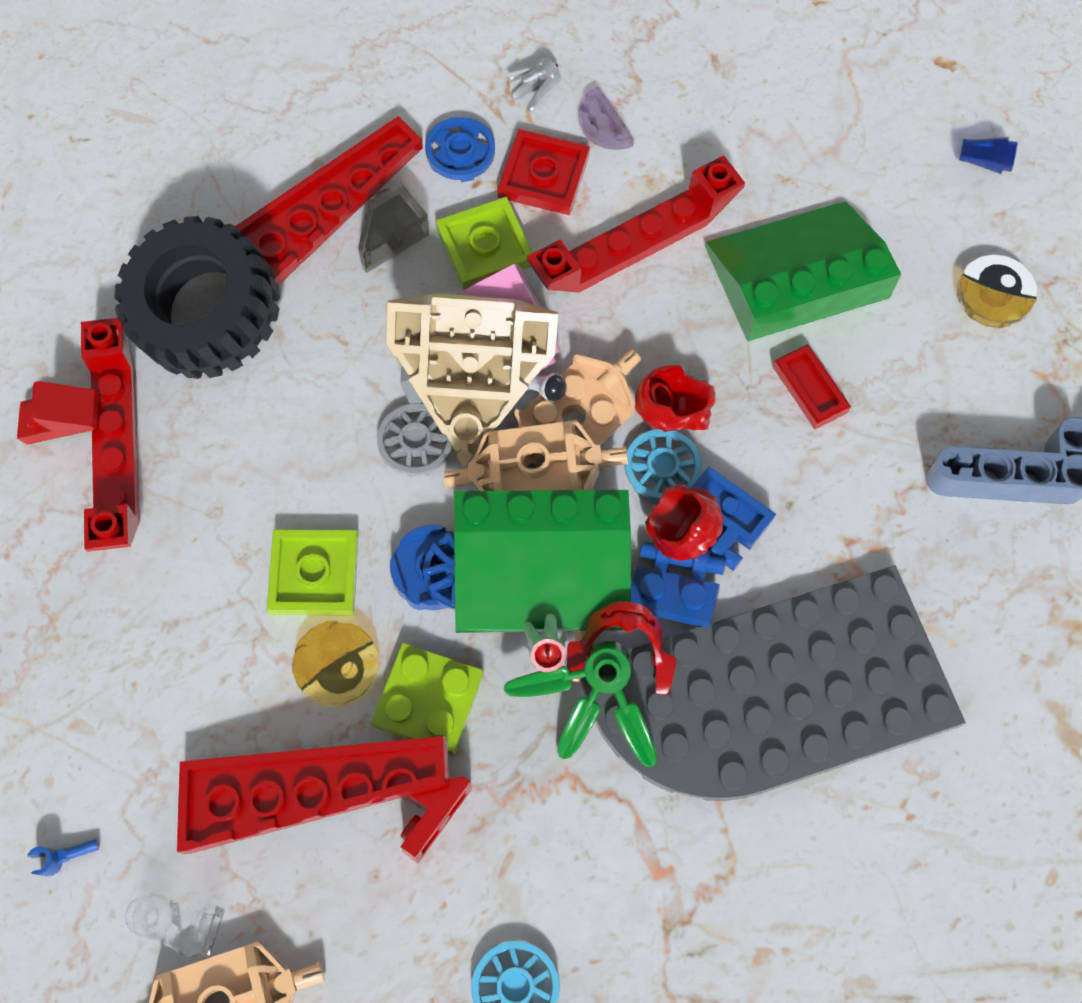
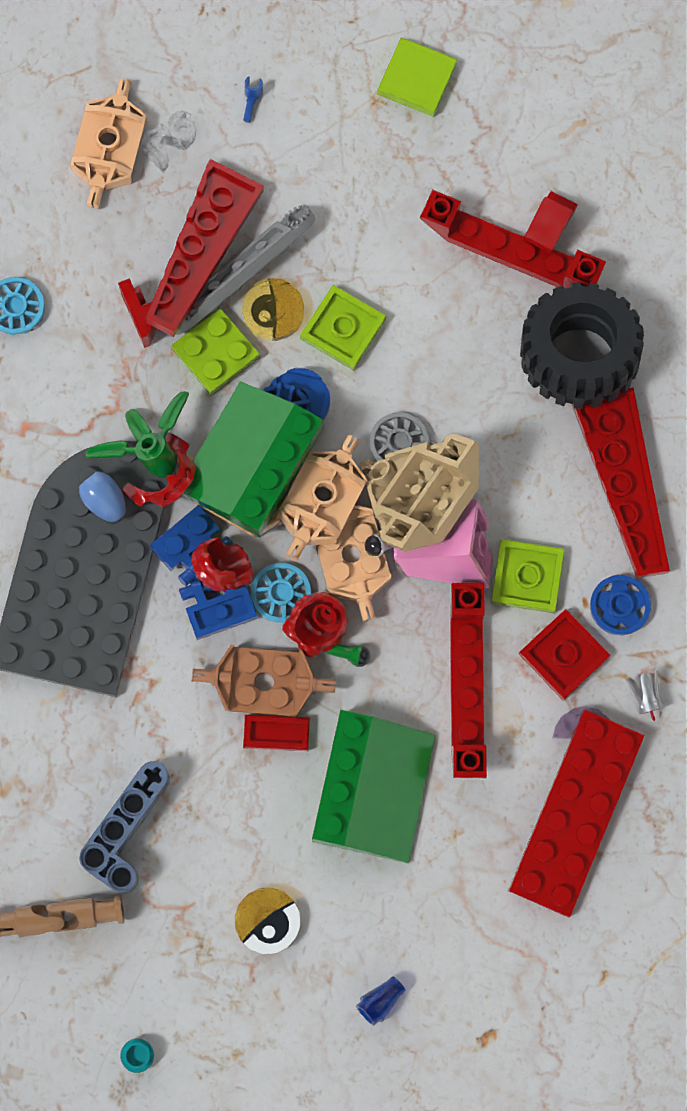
camera: 120 degrees right, 10 degrees up
(280, 715) = (248, 263): none -> light grey plate
(390, 226) = (577, 513): clear smoke slope -> none
(546, 650) = (187, 424): piece -> none
(677, 353) = (357, 655): none -> green piece
(692, 84) = (576, 813): none -> red plate
(695, 703) = (103, 497): none -> medium blue animal
(762, 394) = (241, 666): none -> nougat plate

